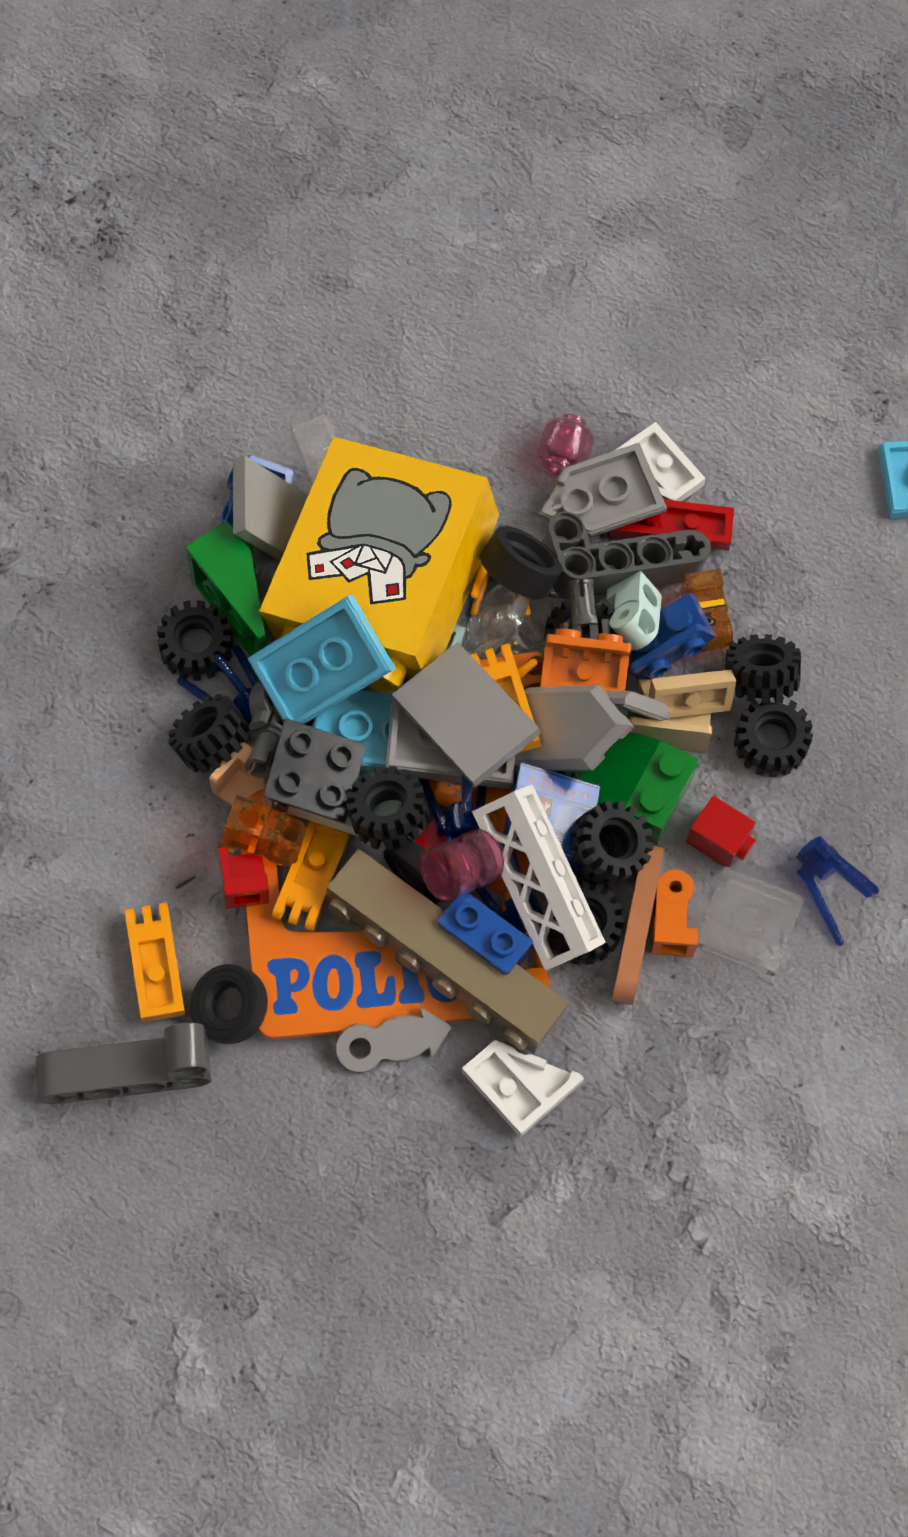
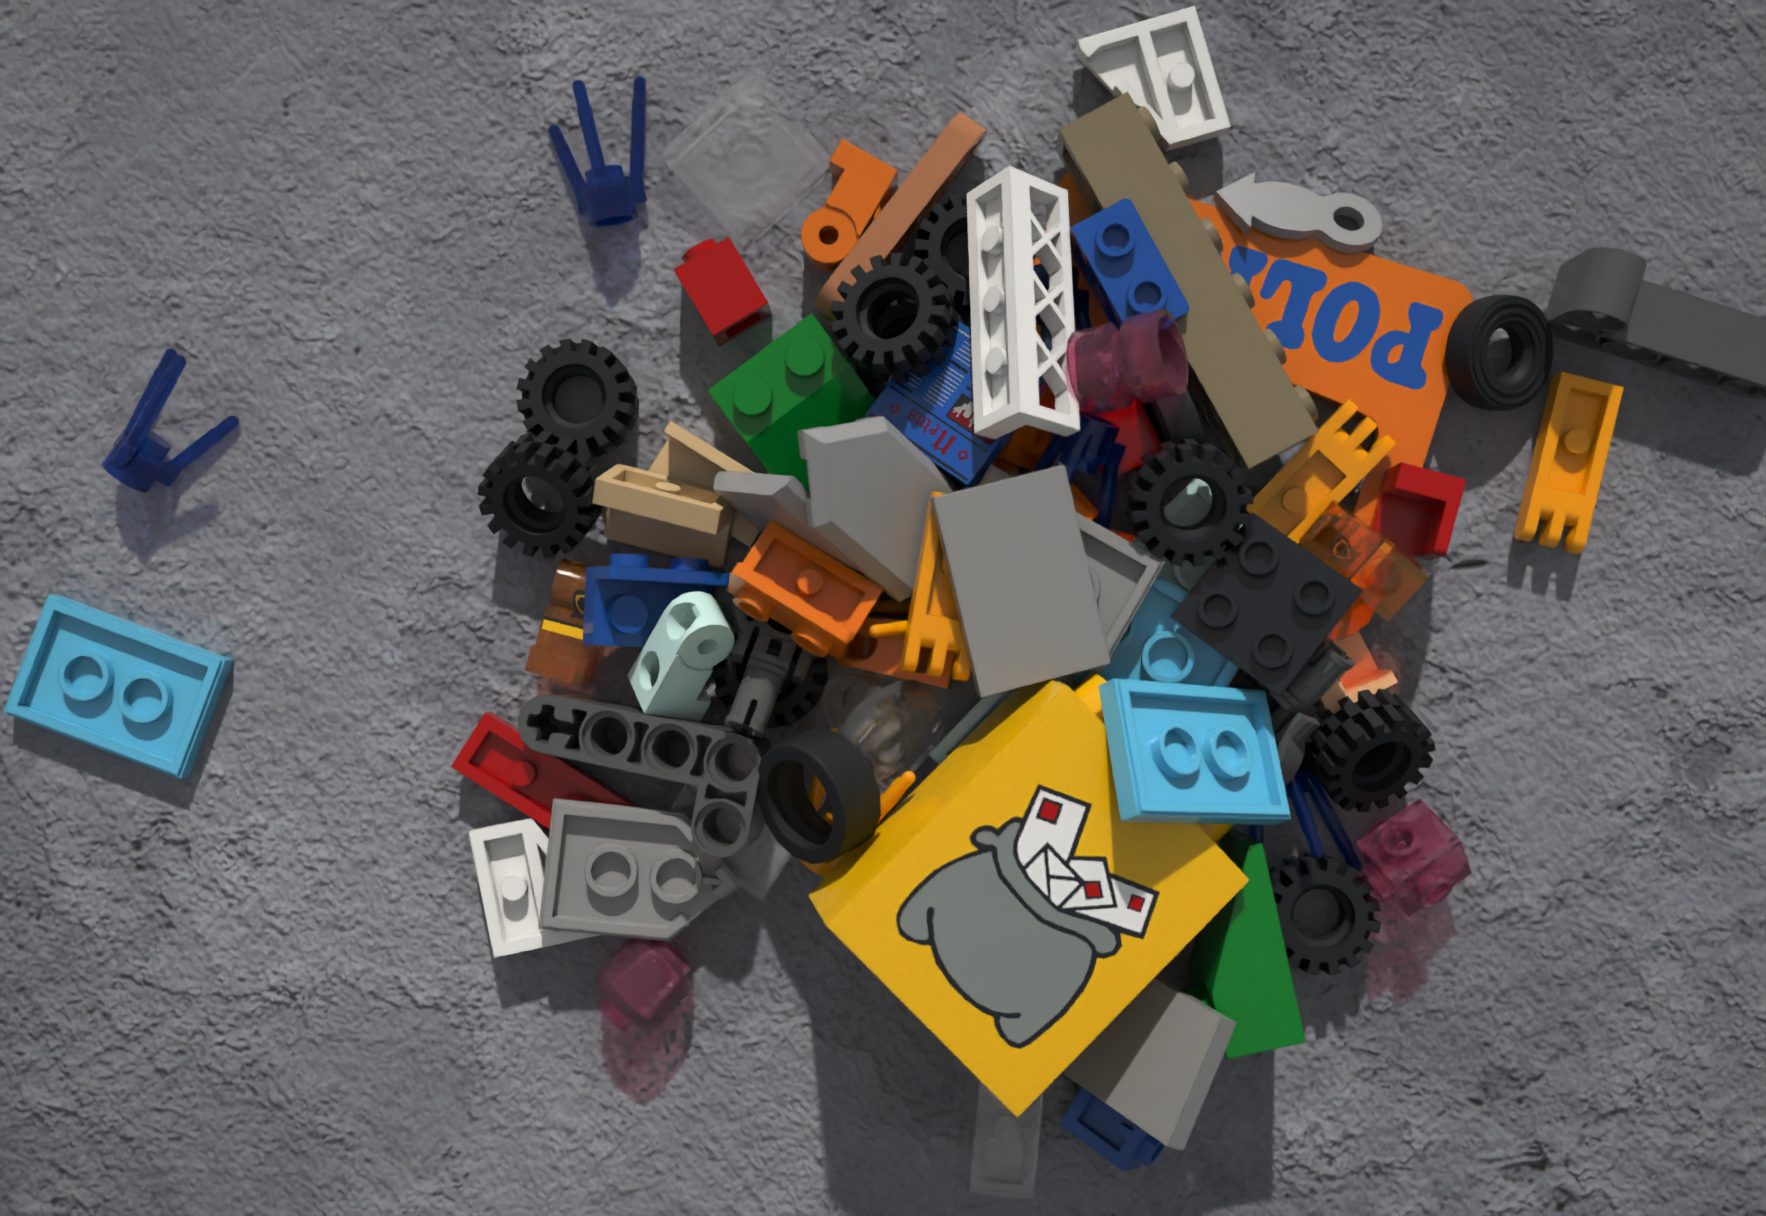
camera: 150 degrees left, 20 degrees up
(154, 688) = (1413, 858): none -> clear pink brick

